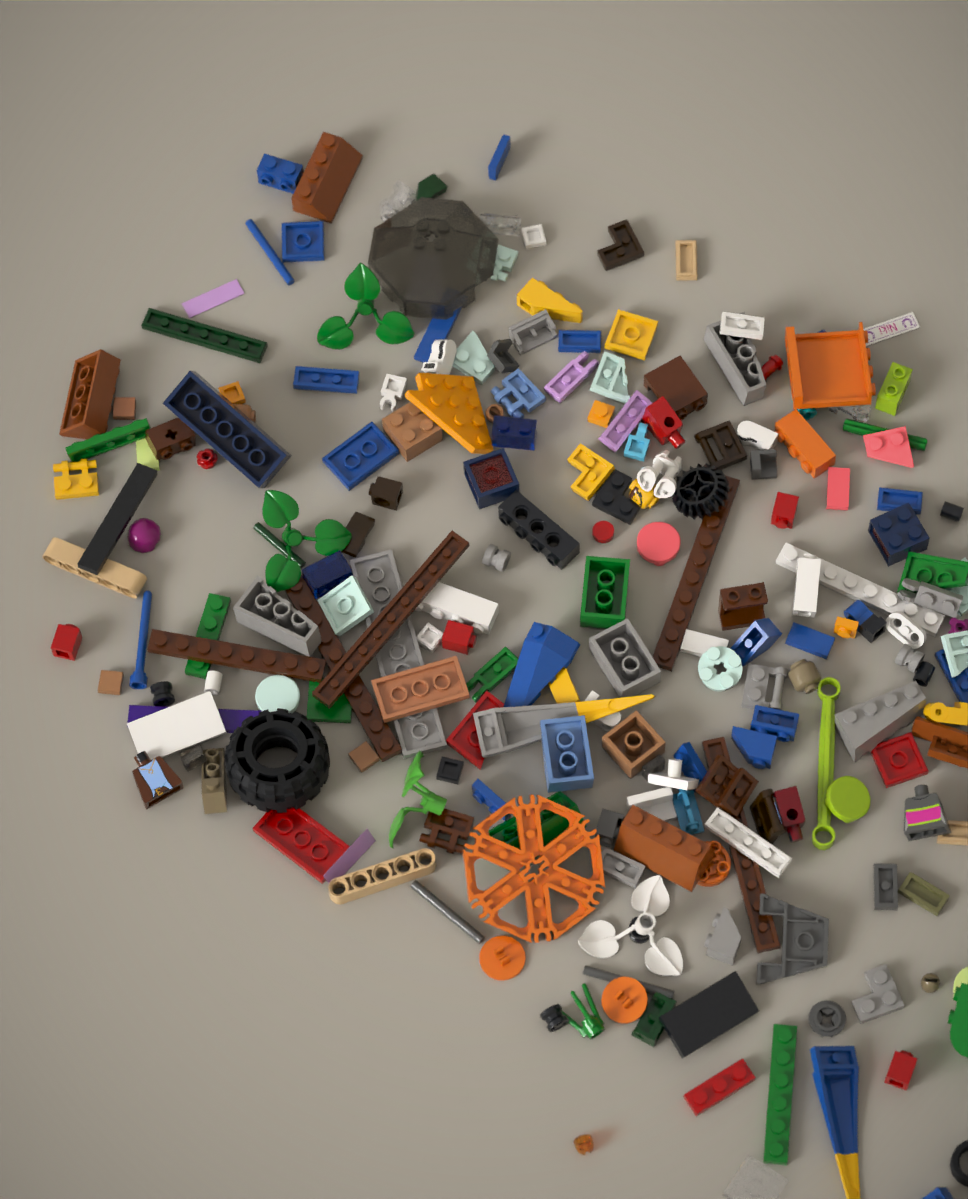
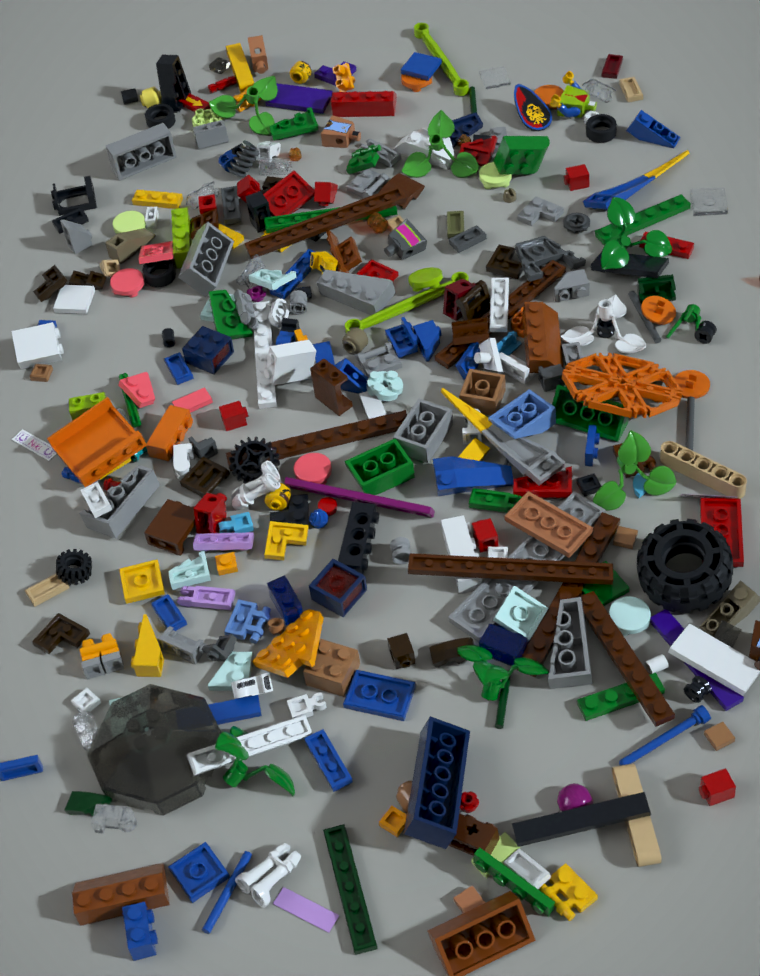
camera: 120 degrees left, 15 degrees down
(114, 459) = (527, 868): none -> white tile
(267, 294) = (260, 891): none -> white piece
(377, 325) = (254, 742): none -> white tile
(413, 817) = (638, 483): none -> medium azure tile
(566, 265) = (100, 654): none -> hips
(575, 569) = (359, 497): none -> magenta tile
(592, 514) = (318, 518): none -> blue plate
(680, 295) = (73, 574): none -> black tyre
(766, 1031) = (614, 251): none -> green plant
(820, 893) = (501, 263): none -> dark brown plate

